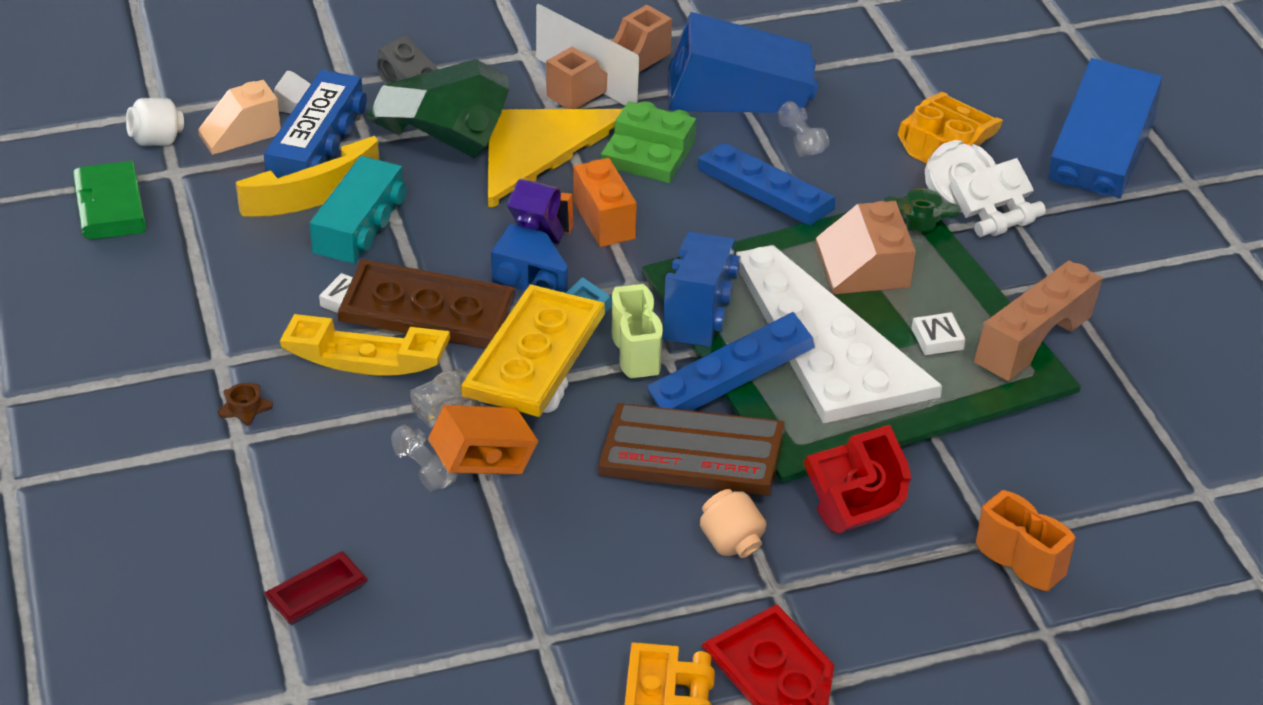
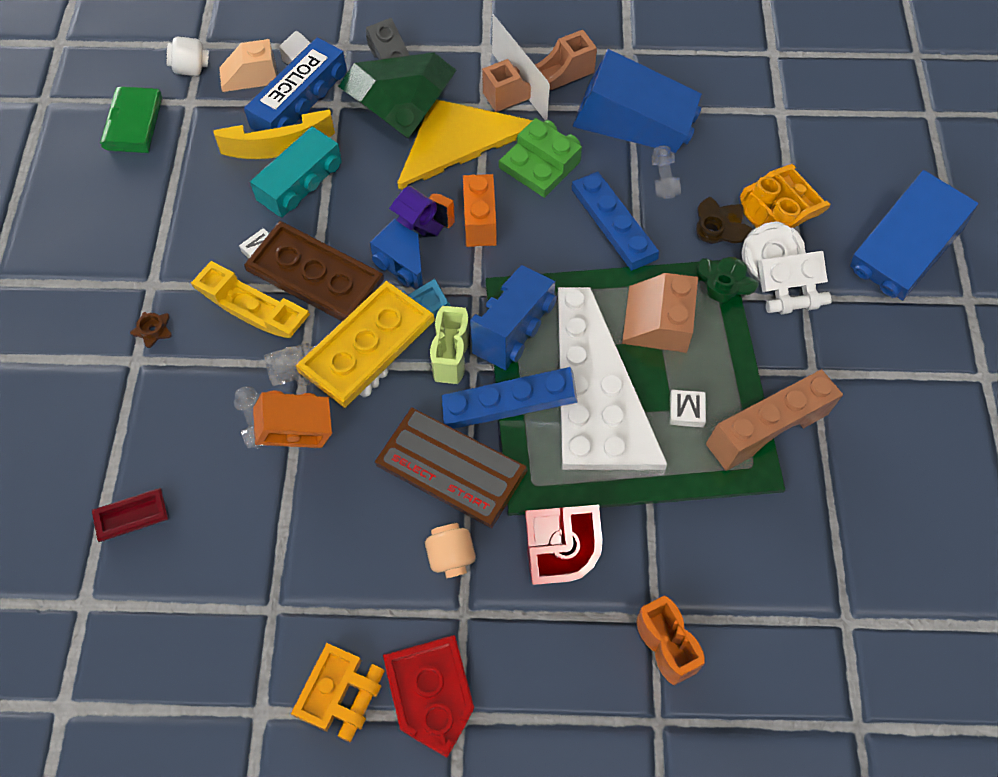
camera: 20 degrees right, 20 degrees up
(888, 165) = (724, 222): none -> dark brown plate

